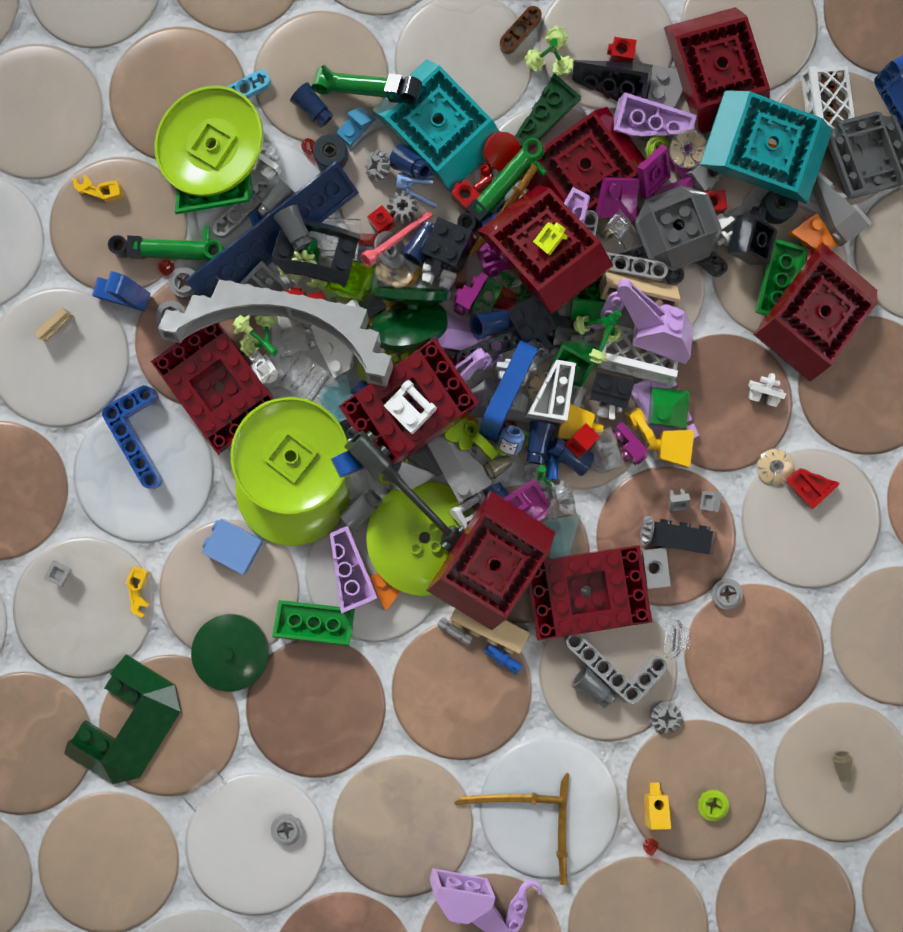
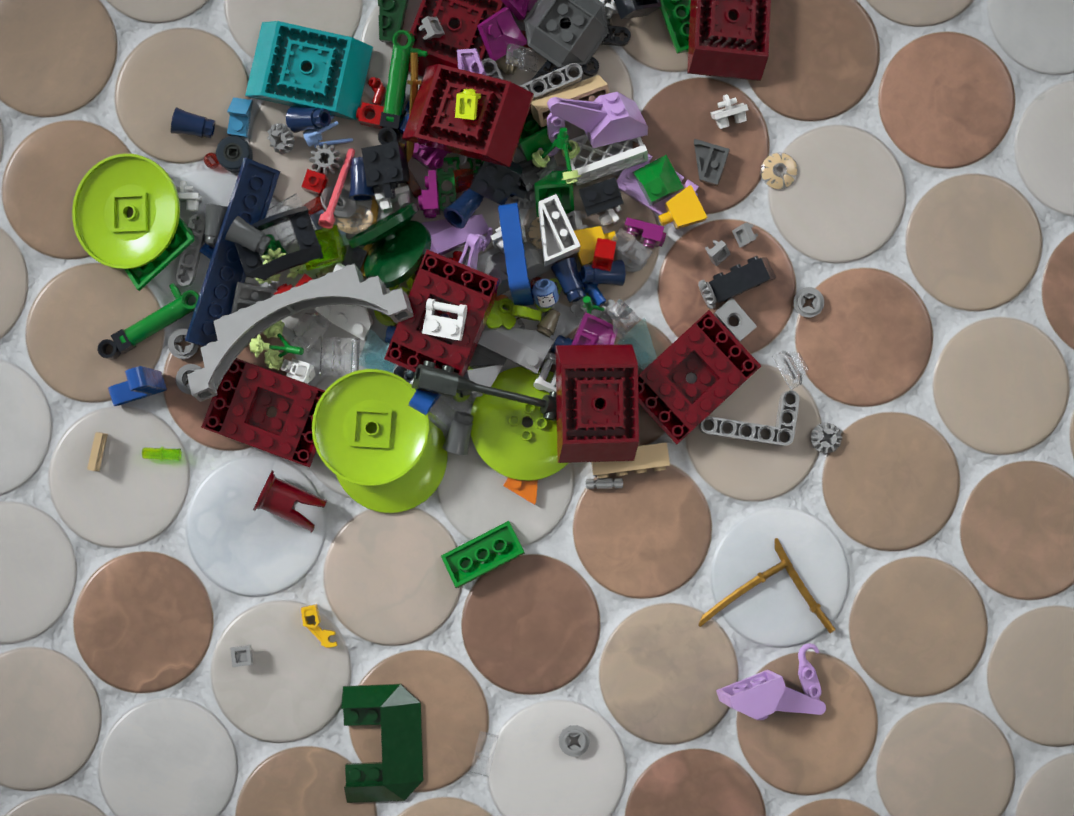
camera: 35 degrees left, 0 degrees up
(88, 188) = (52, 318): yellow piece -> none
(105, 361) = (161, 453): none -> clear neon green axle
(130, 436) = (225, 502): blue beam -> none
(166, 267) = (160, 341): clear red hinge -> none
(176, 462) = (279, 497): none -> dark red piece
(230, 652) = (429, 626): dark green dish -> none
(232, 546) = (372, 536): medium blue brick -> none
(247, 81) = (127, 132): medium azure beam -> none
(351, 573) = (487, 492): lavender wedge -> none
(393, 87) = (250, 66): green piece -> none
(488, 346) = (474, 228): black beam -> none
(500, 149) = (375, 57): red tile -> none
(502, 658) = (659, 479): blue pin -> none
(564, 156) = (432, 27): none -> light grey tile
(593, 687) = (749, 453): dark grey plant -> none
(637, 420) = (639, 208): yellow piece -> none
(650, 846) = (884, 552): clear red hinge -> none
(658, 816) = (872, 522): yellow torso -> none
(716, 813) = (919, 489): lime gear -> none
(723, 421) = (710, 161): none -> dark grey wing
(811, 487) = (819, 167): red wing -> none
(843, 765) = (997, 379): dark tan cone -> none

